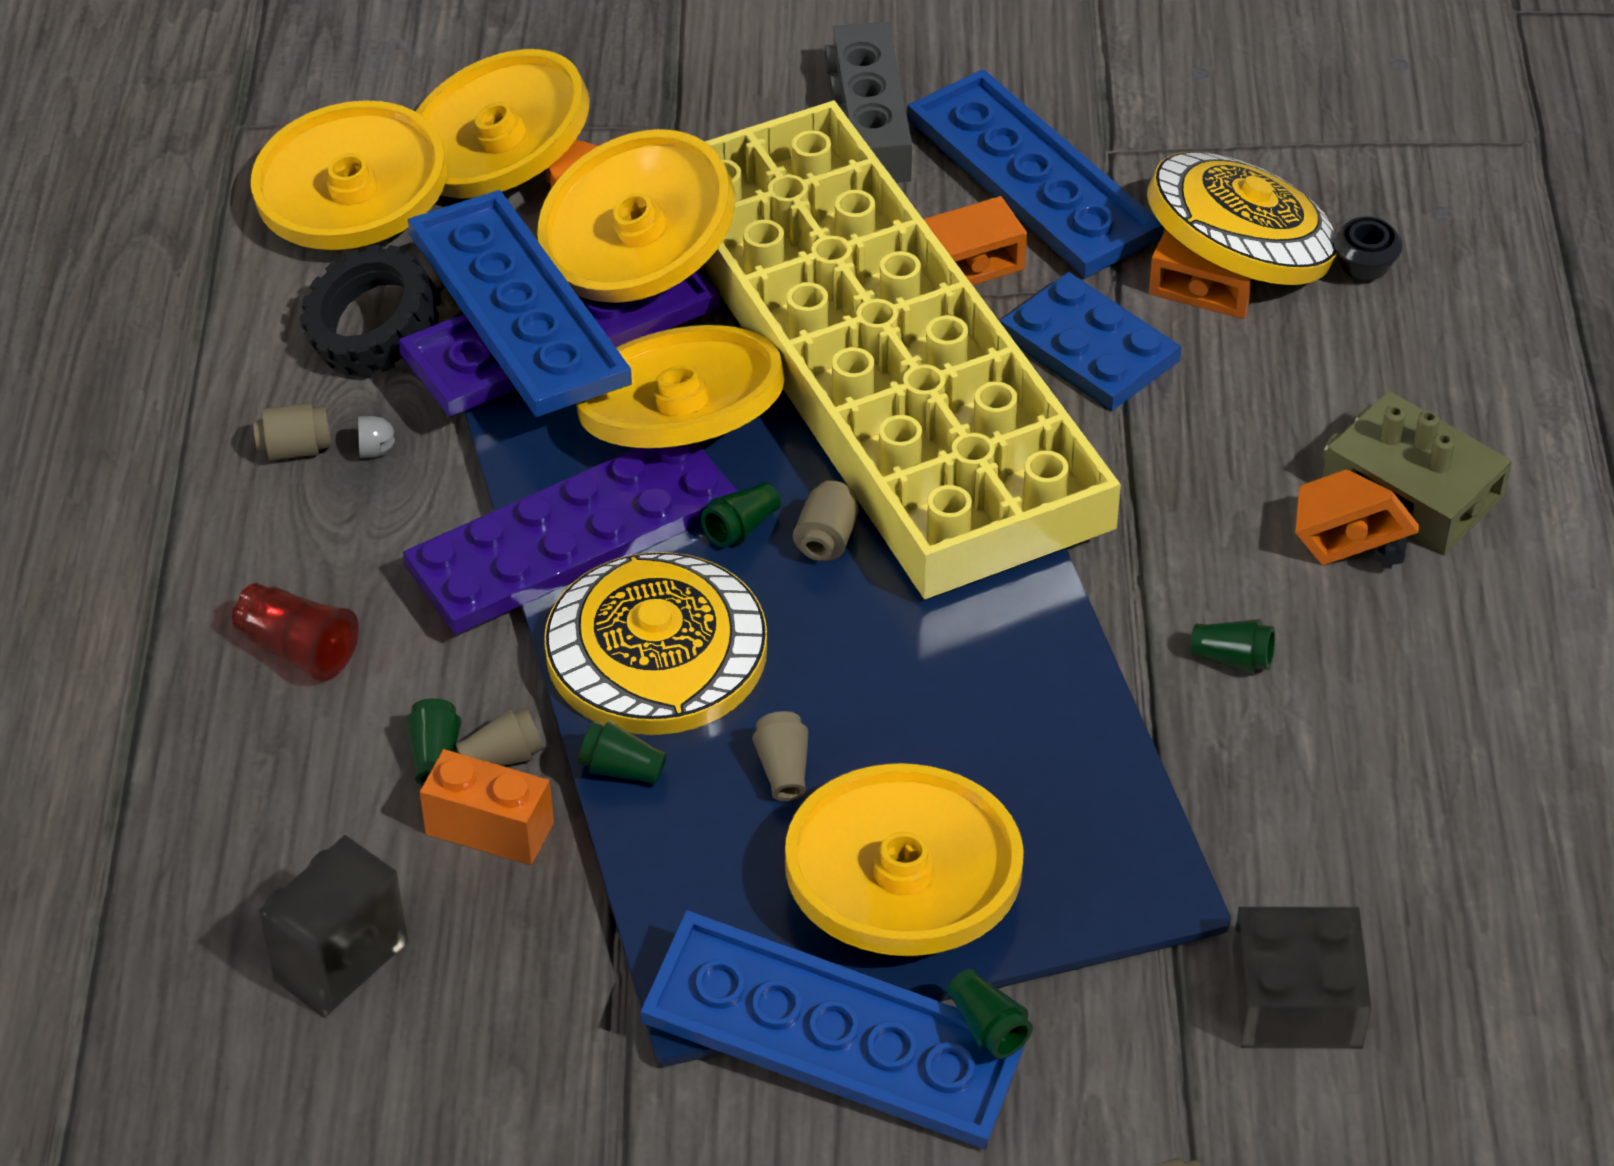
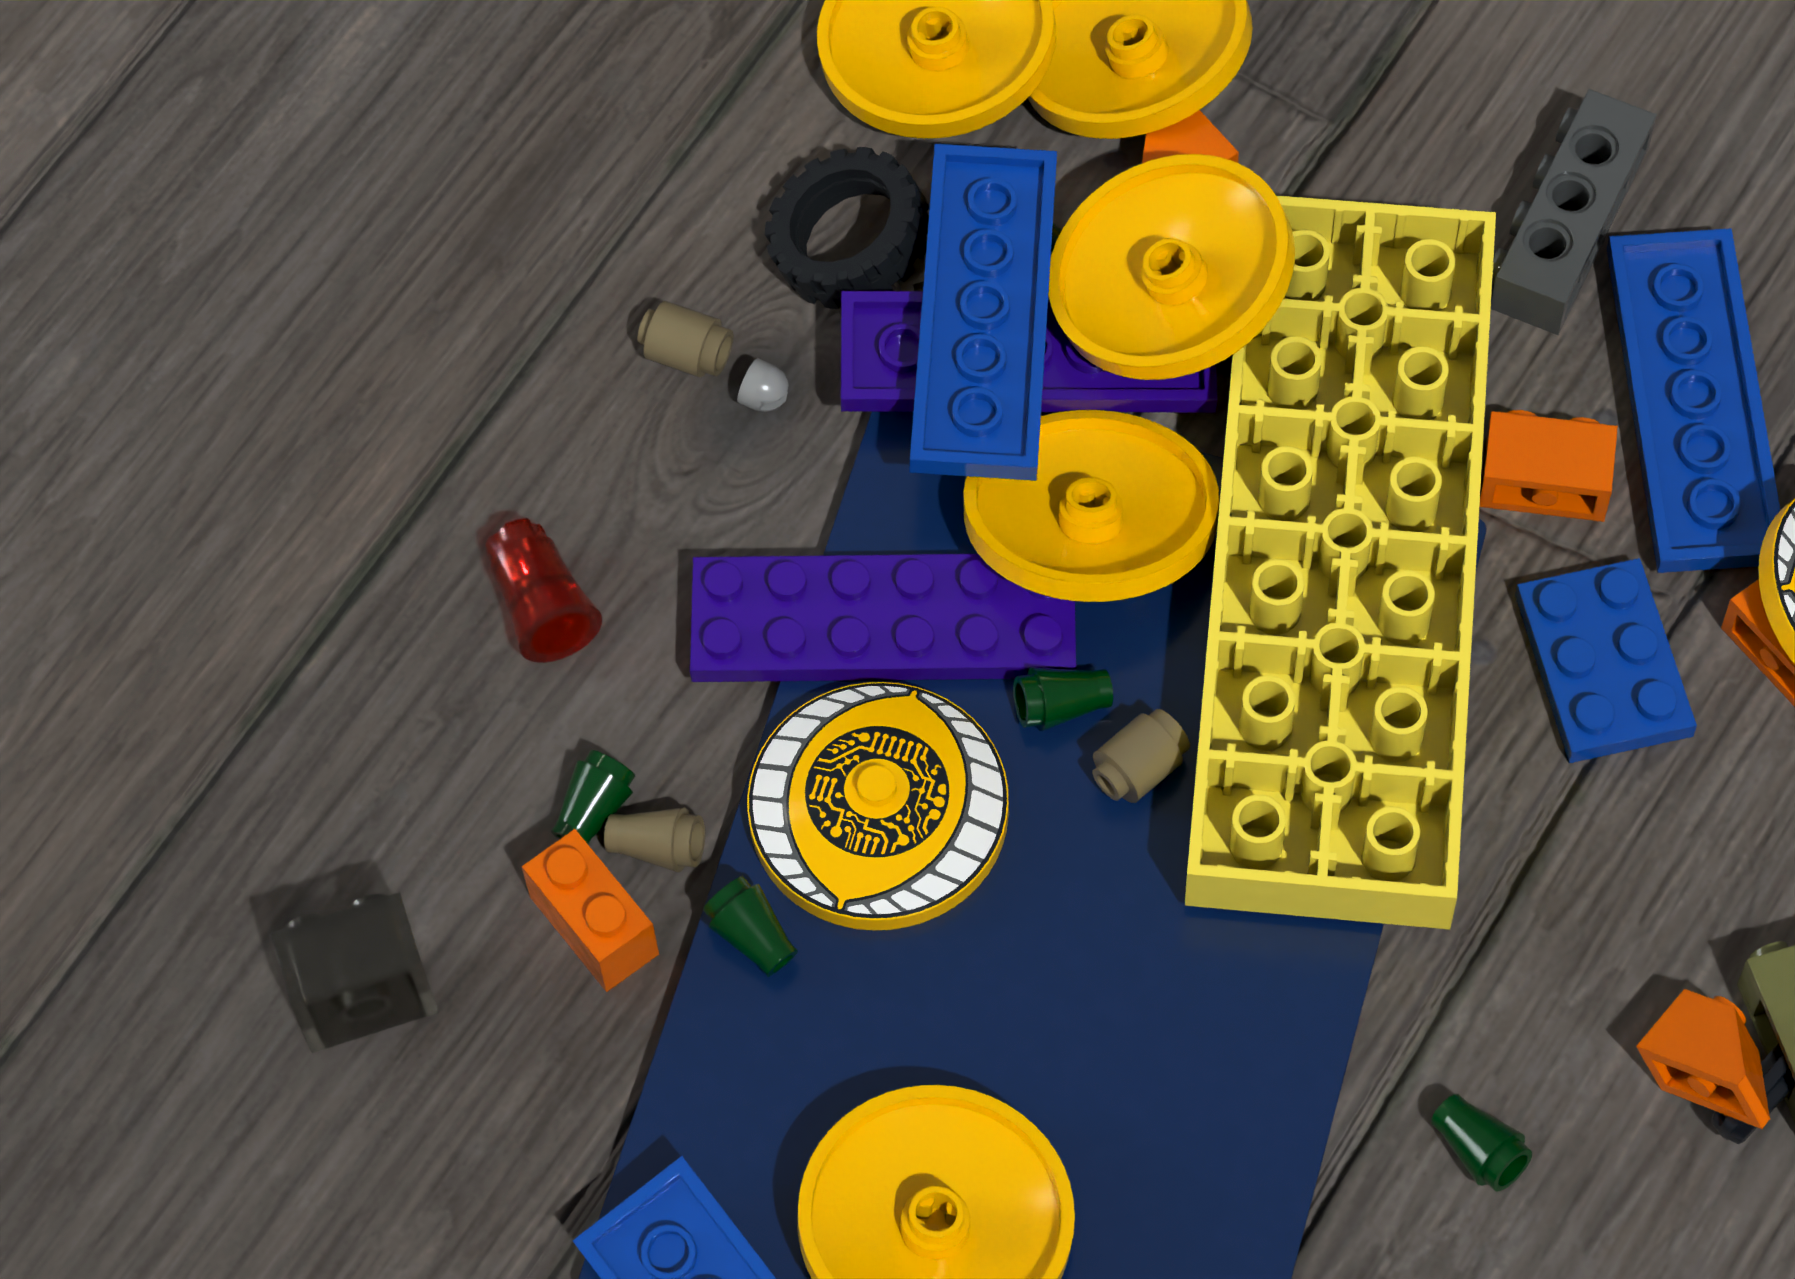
camera: 35 degrees right, 15 degrees up
(782, 748) = (909, 1017): dark tan cone -> none

